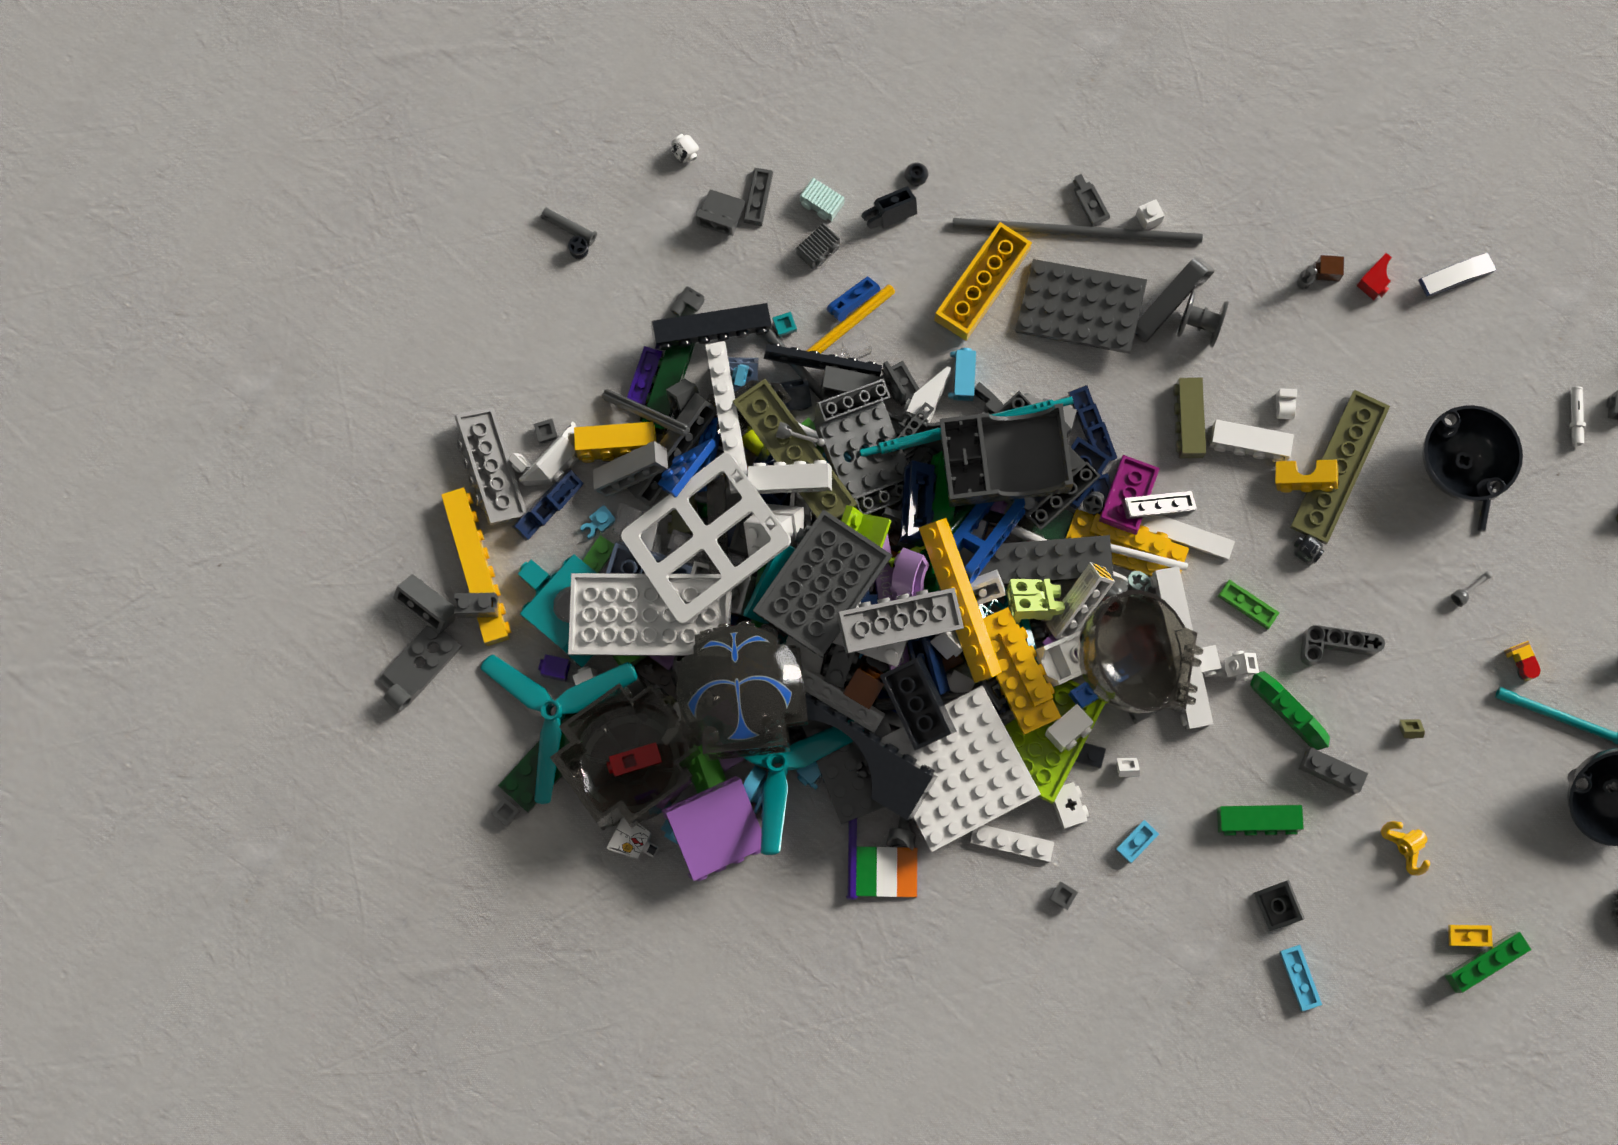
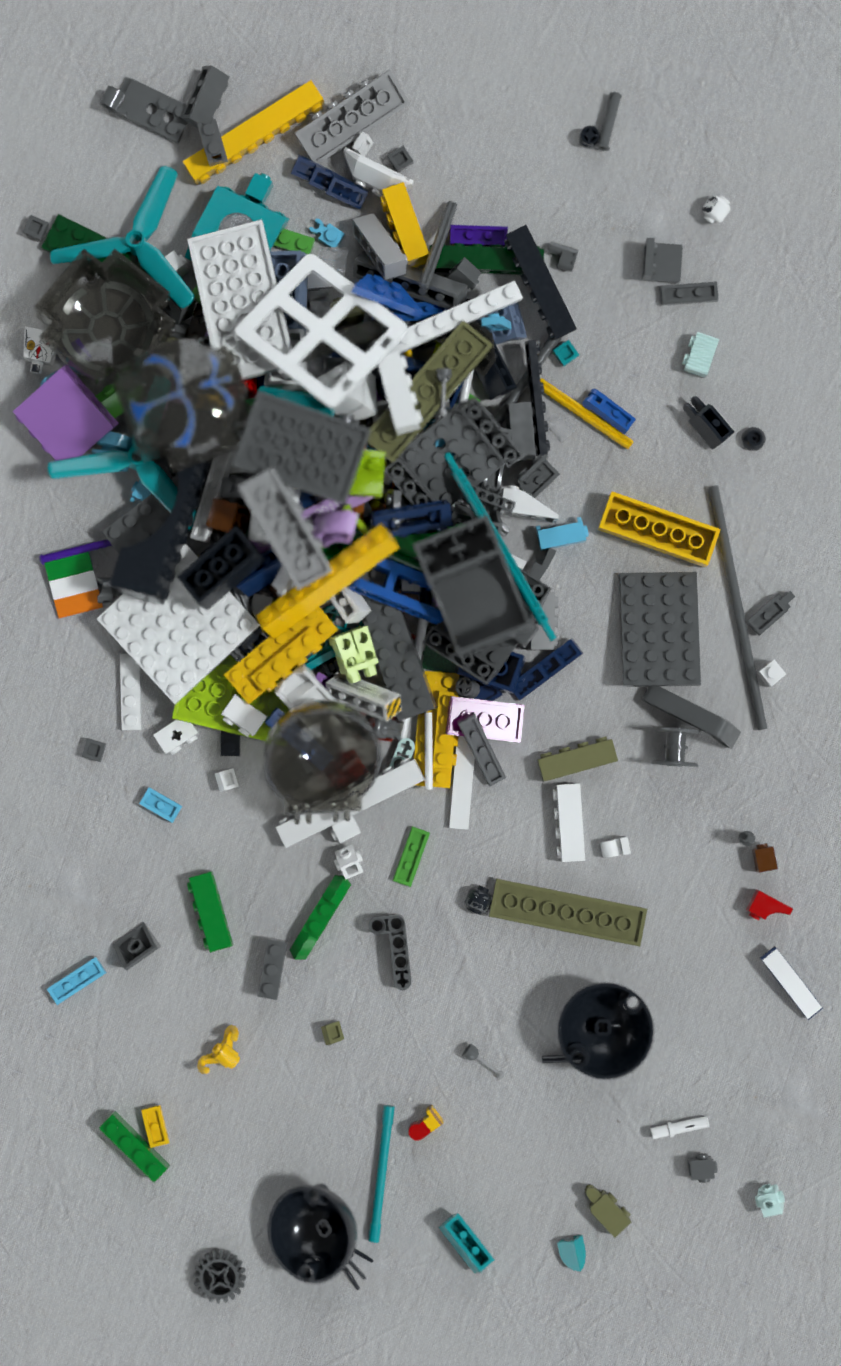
camera: 65 degrees right, 10 degrees up
(554, 667) = (178, 232): dark purple brick -> none
(634, 760) = (109, 328): red brick -> none
(818, 246) = (652, 364): dark grey brick -> none
(1323, 478) = (549, 897): yellow arch -> none

